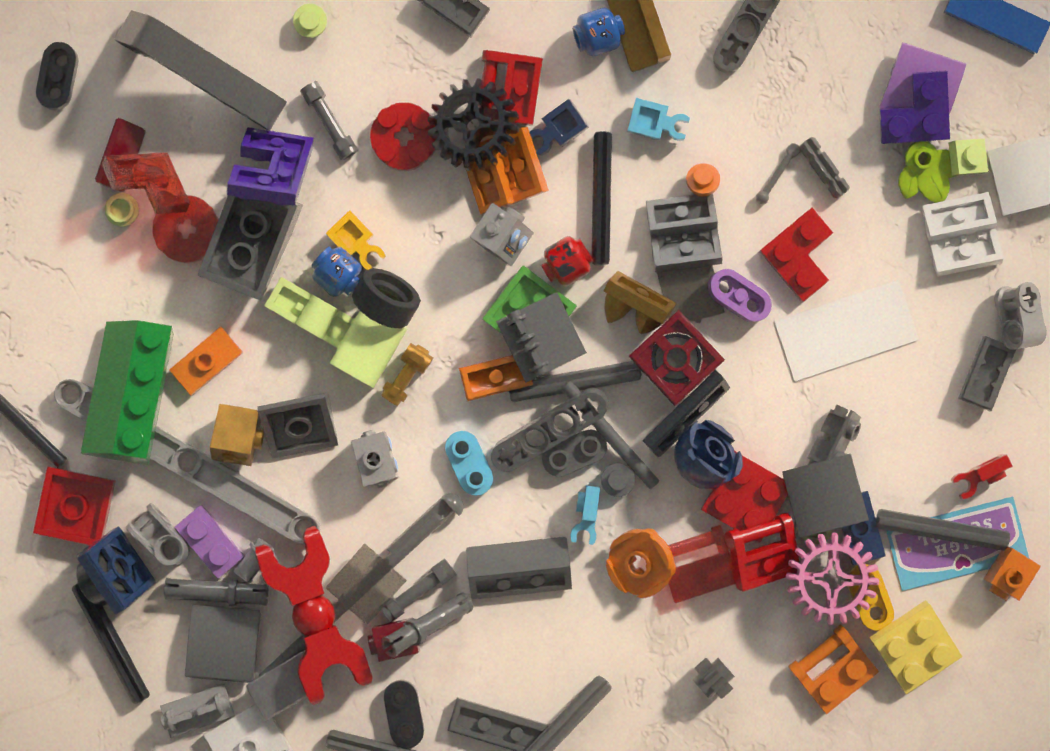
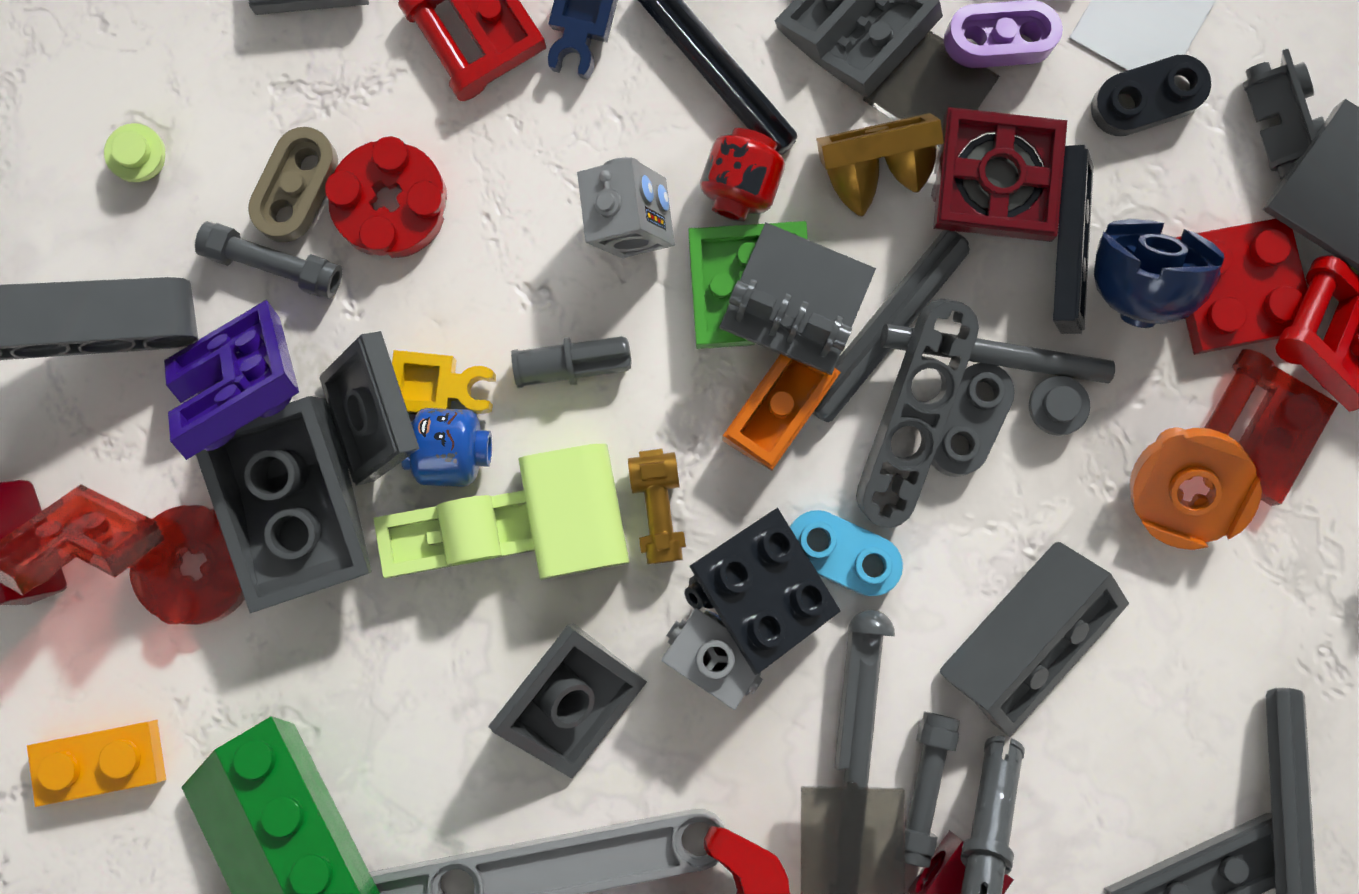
camera: 45 degrees left, 5 degrees down
(78, 280) = (96, 763): none -> light orange plate
(121, 209) = (79, 614): plate -> none
(206, 361) = (368, 723): orange plate -> none
(236, 435) = (493, 792): pearl gold head -> none
(317, 229) = (368, 409): none -> dark grey plate
(366, 93) = (286, 184): none -> dark tan plate
(386, 298) = (542, 423): black tyre -> none
(418, 448) = (762, 590): none -> black hinge
(422, 279) = (570, 361): none -> dark grey axle
(474, 110) = (429, 100): black gear -> none
(512, 178) = (555, 129): orange slope -> none
(588, 505) = (1056, 471): medium azure plate -> none
(783, 379) = (1154, 95): none -> black plate

